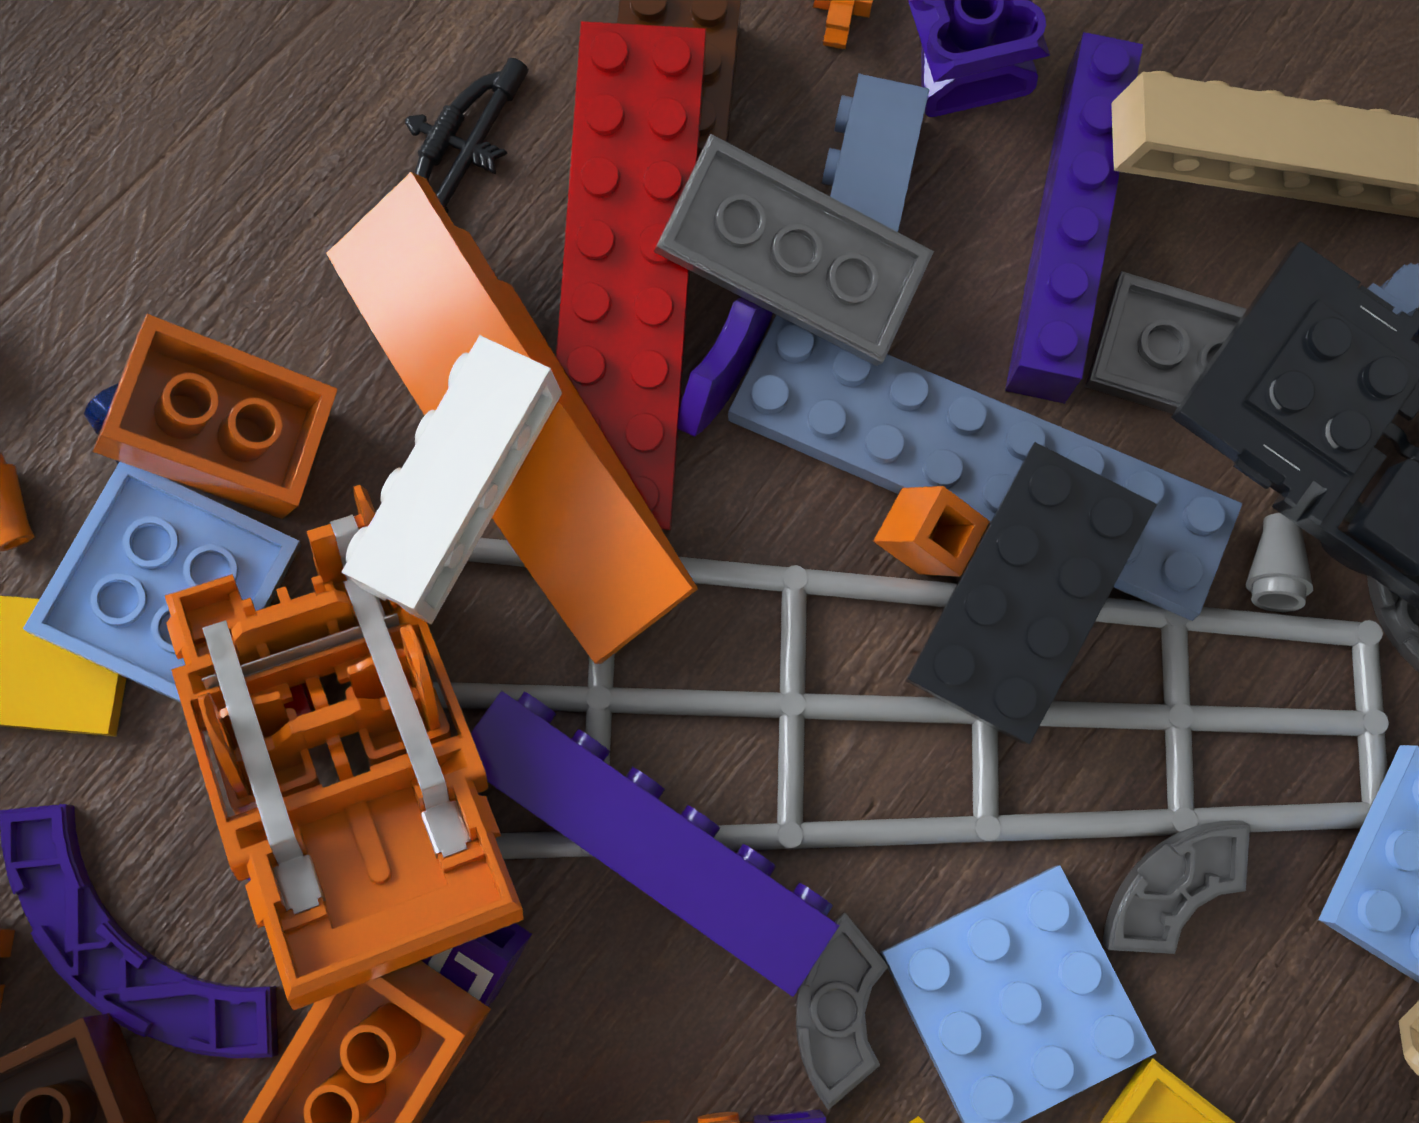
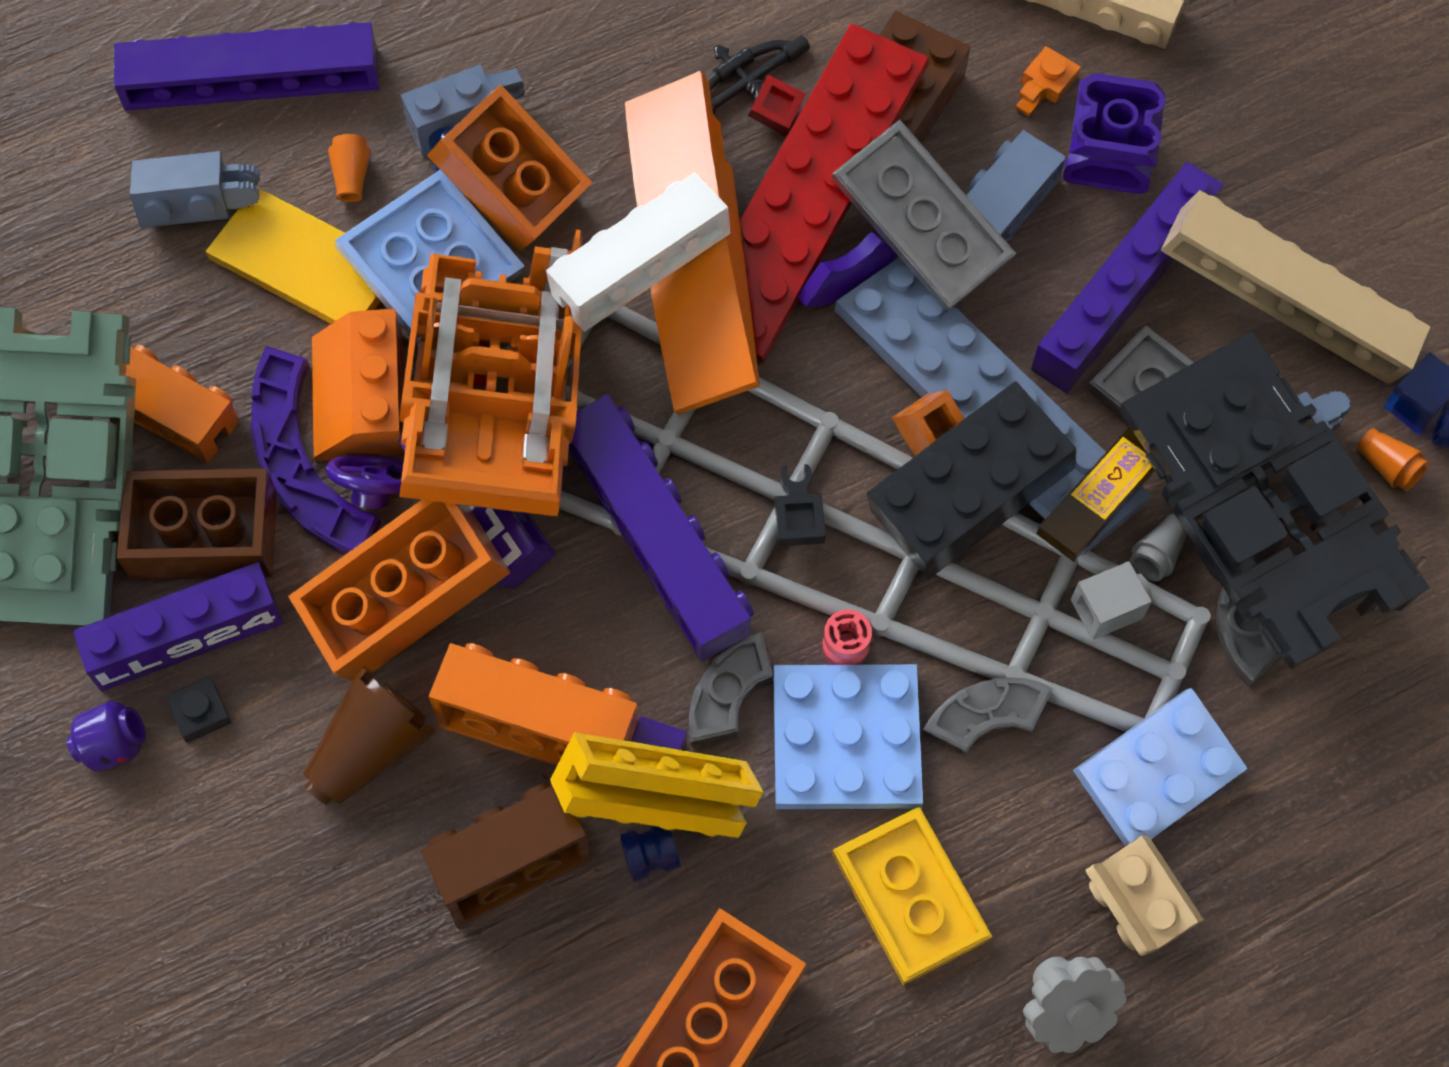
camera: 25 degrees right, 10 degrees down
(96, 344) = (451, 99): none -> sand blue hinge
(150, 813) = (358, 385): none -> orange slope
(235, 949) = (366, 477): none -> dark purple piece
(524, 168) = (776, 104): none -> red plate
(824, 735) = (799, 513): none -> black plate
(948, 876) = (844, 648): none -> coral wheel
(1190, 542) = (1097, 497): none -> tile
(1268, 672) = (1112, 600): none -> light grey brick

